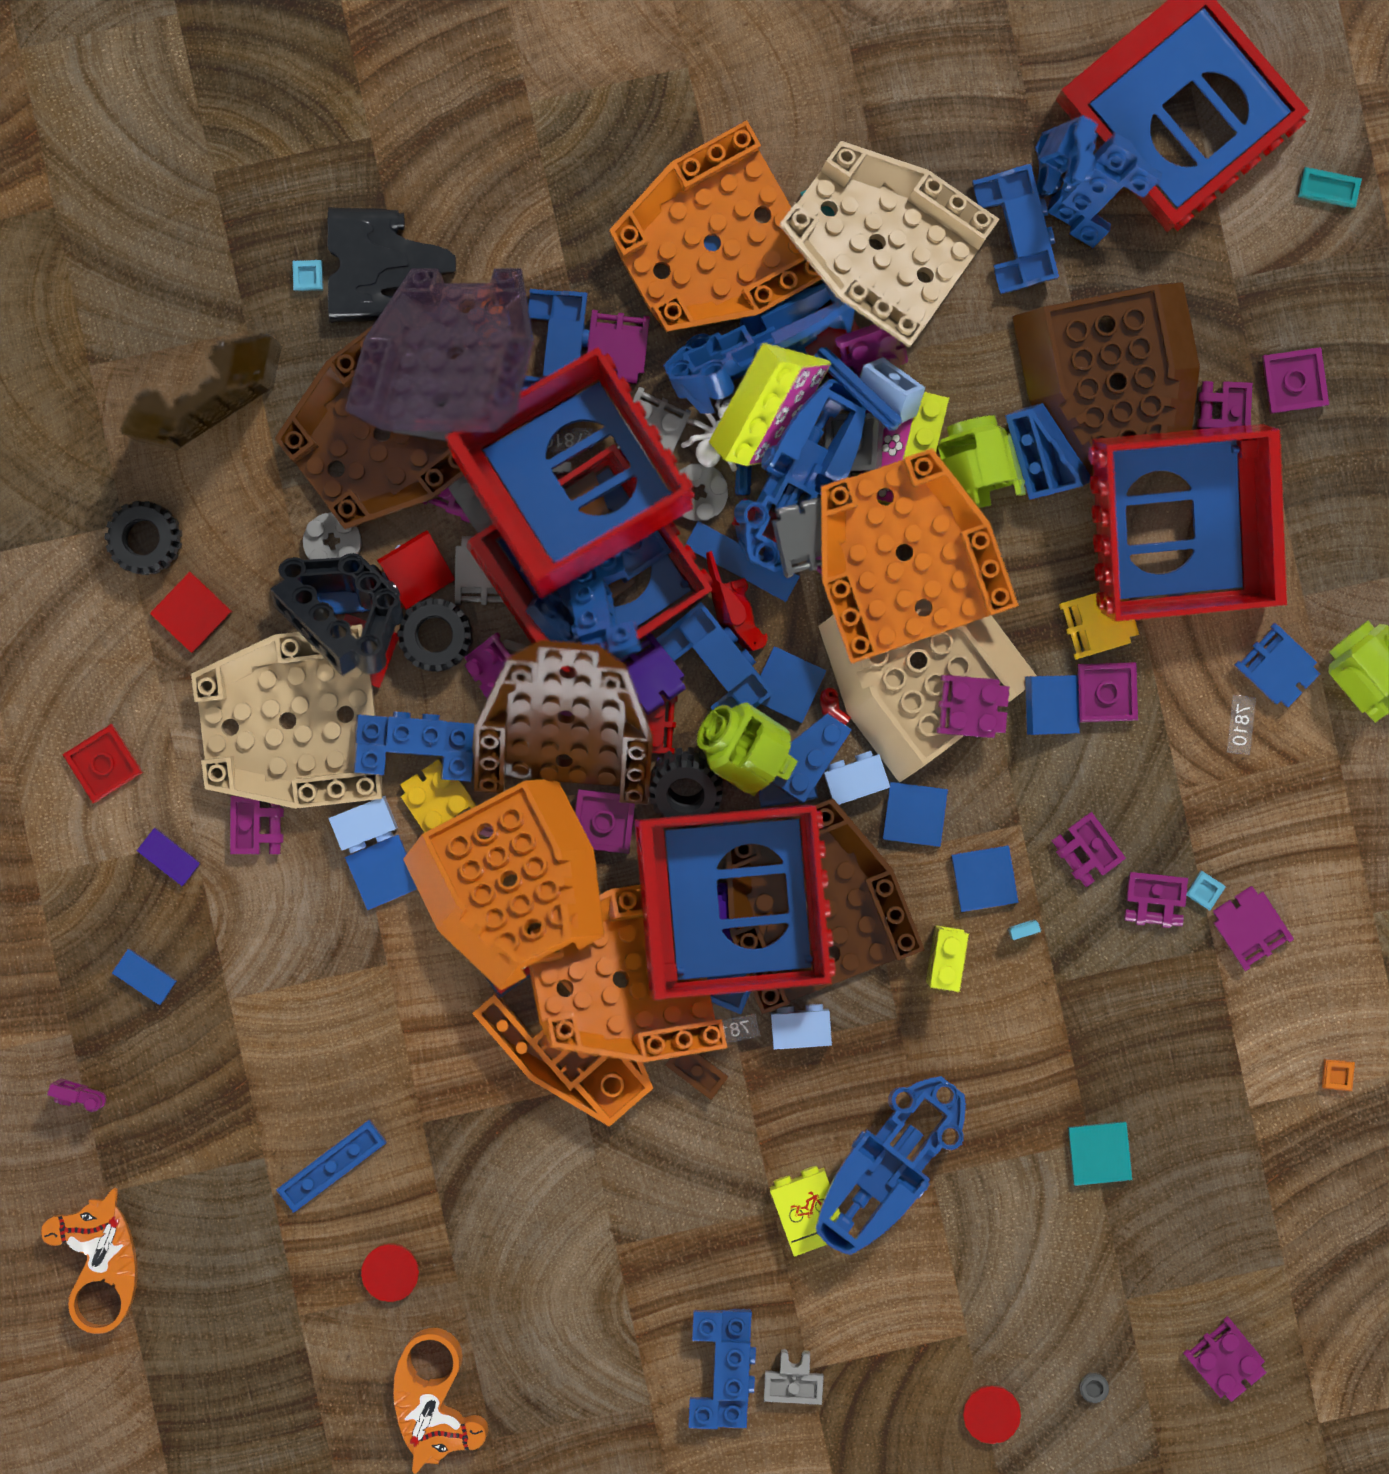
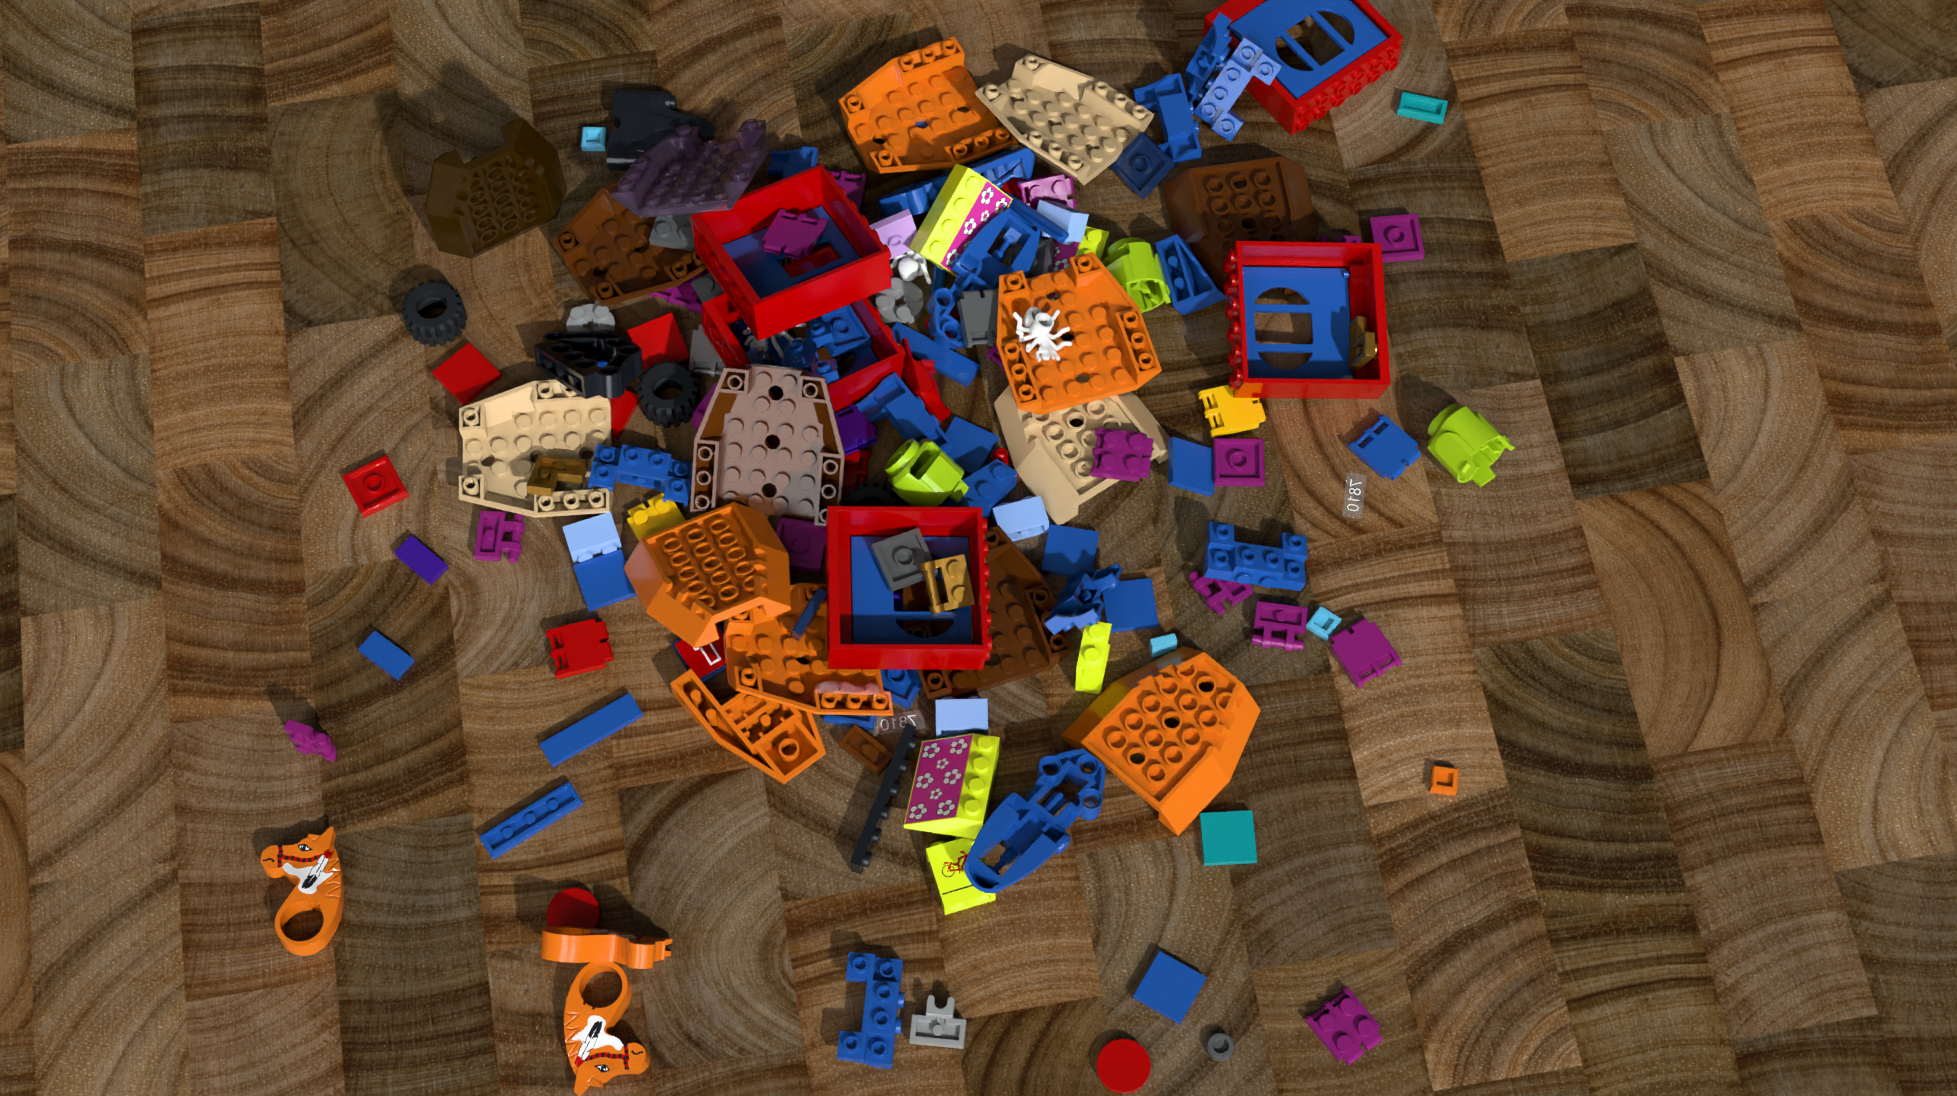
camera: 10 degrees right, 25 degrees down
(308, 749) = (551, 469): none -> pearl gold plate
(364, 960) = (580, 647): none -> red plate
(386, 1057) = (591, 730): none -> blue tile
(426, 1317) = (600, 945): none -> orange animal
(569, 438) = (793, 236): none -> magenta plate
(624, 936) = (809, 614): none -> dark blue tile
(689, 426) = (896, 232): none -> lavender plate
(718, 1141) = (881, 809): none -> black plate
(728, 860) = (900, 559): none -> dark grey plate
(788, 886) = (955, 583): none -> pearl gold plate
(795, 1115) = (953, 785): none -> slope
(872, 559) = (1038, 326): none -> white animal
(928, 891) = (1080, 599): none -> blue bracket
(987, 294) = (1142, 165): none -> dark blue plate
(990, 1025) = (1181, 764): none -> orange wedge
(1039, 1325) = (1169, 987): none -> blue tile
(1128, 831) = (1255, 563): none -> blue bracket
(1251, 554) = (1361, 344): none -> pearl gold plate

